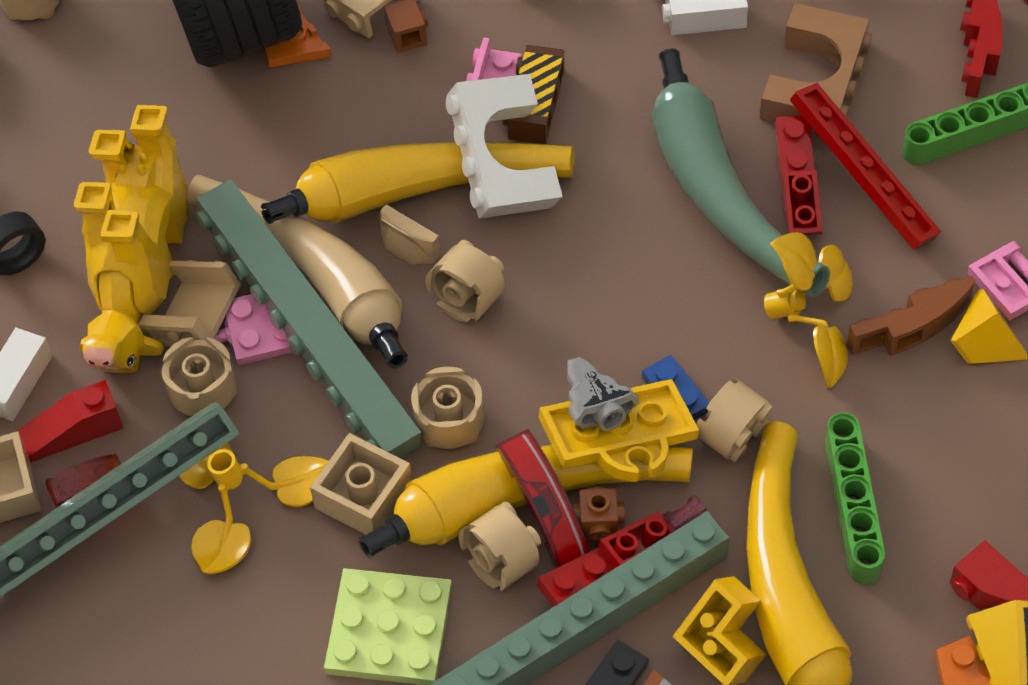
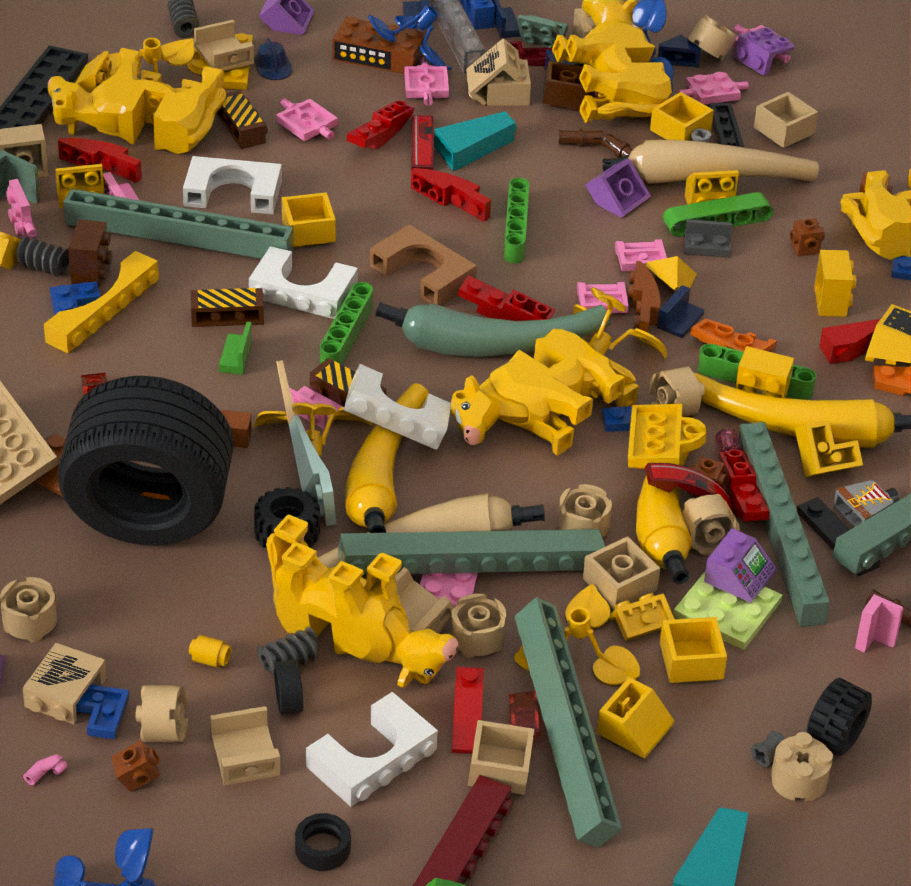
camera: 70 degrees left, 15 degrees down
(47, 157) = (210, 651): none -> yellow brick
(62, 220) = (291, 648): none -> dark grey piece
(123, 593) = (634, 718): none -> yellow slope
(266, 611) = (693, 649): none -> yellow piece
(275, 113) = (282, 502): none -> black tyre
(310, 538) = (641, 616): none -> yellow bracket
(354, 118) = (312, 472): none -> light aqua plate
(408, 238) = (423, 490): tan slope -> none
(422, 96) = (303, 408): none -> yellow plant
(432, 608) = (739, 566): none -> medium lavender slope
(466, 281) = (490, 469): tan brick -> none
(597, 397) = (637, 429): light grey rock -> none
(619, 276) = (539, 389): none -> yellow animal
(641, 45) = (347, 323): none -> bright green beam
(820, 504) = (764, 372): none -> yellow slope
(865, 166) = (530, 270): red plate -> none
(884, 277) = (589, 301): none -> bright pink plate
(902, 450) = (724, 335): none -> orange wing
(920, 367) = (677, 314): none -> dark blue panel

